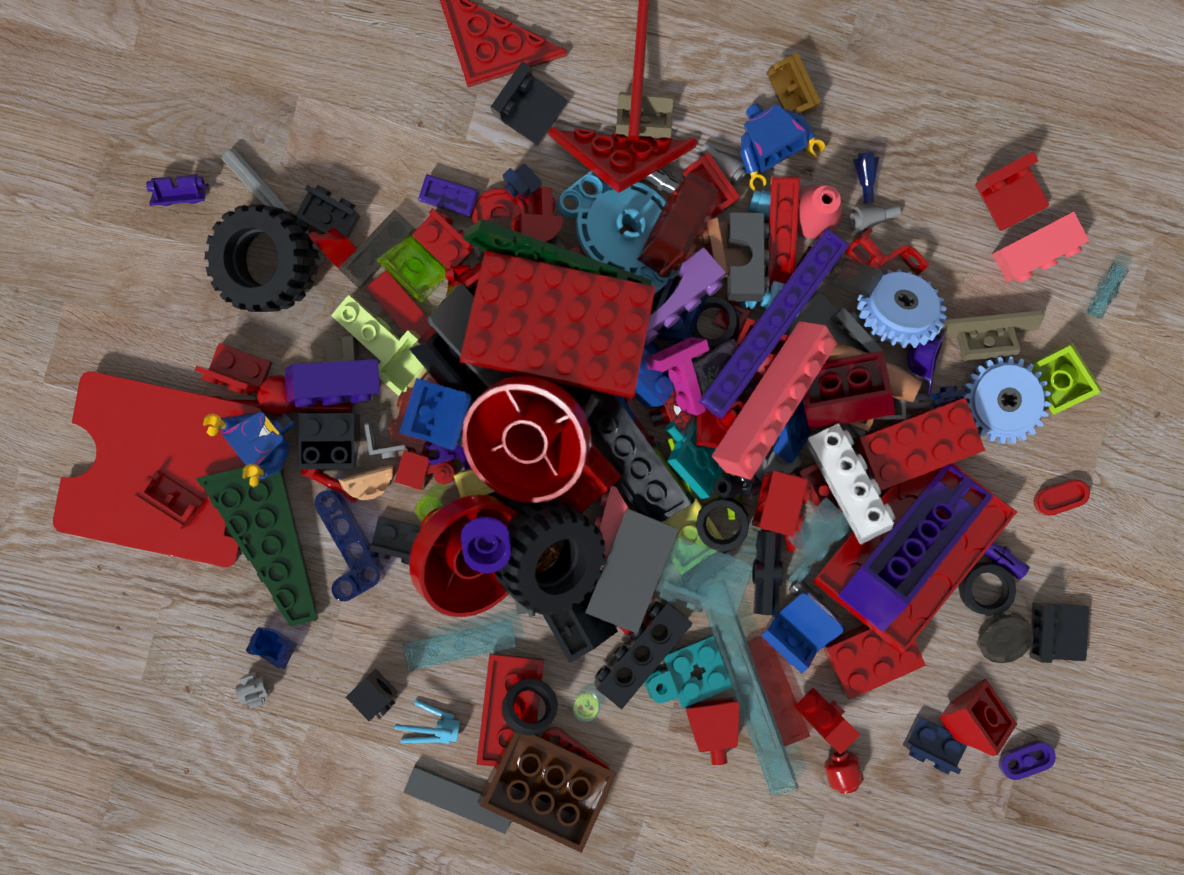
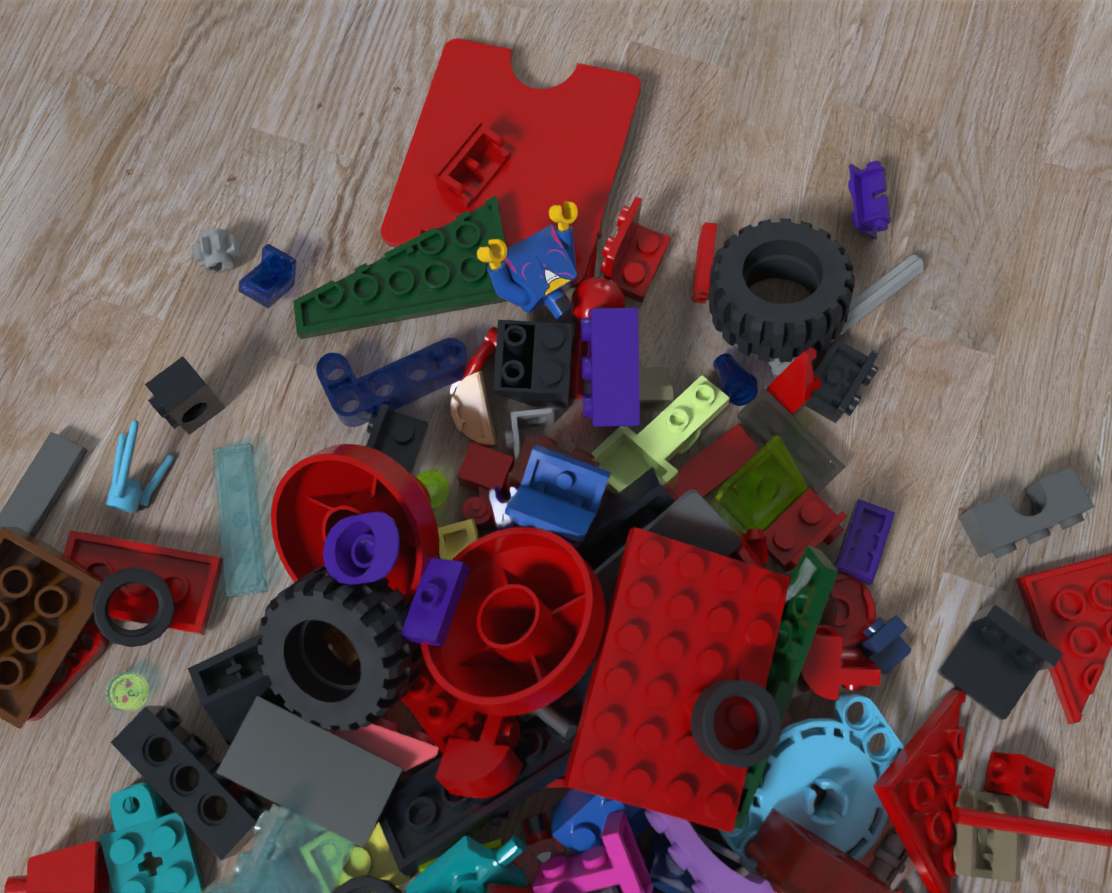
camera: 90 degrees right, 15 degrees down
(238, 316) = (704, 262): none -> red tile
(333, 290) = (735, 380): none -> clear blue cone
(409, 58) = (1054, 501): none -> dark grey arch
(517, 492) = (435, 602): none -> dark purple plate
(591, 265) = (767, 730): none -> black tyre
(606, 91) = (1020, 777): none -> red bracket
(622, 453) = (482, 766): none -> red brick

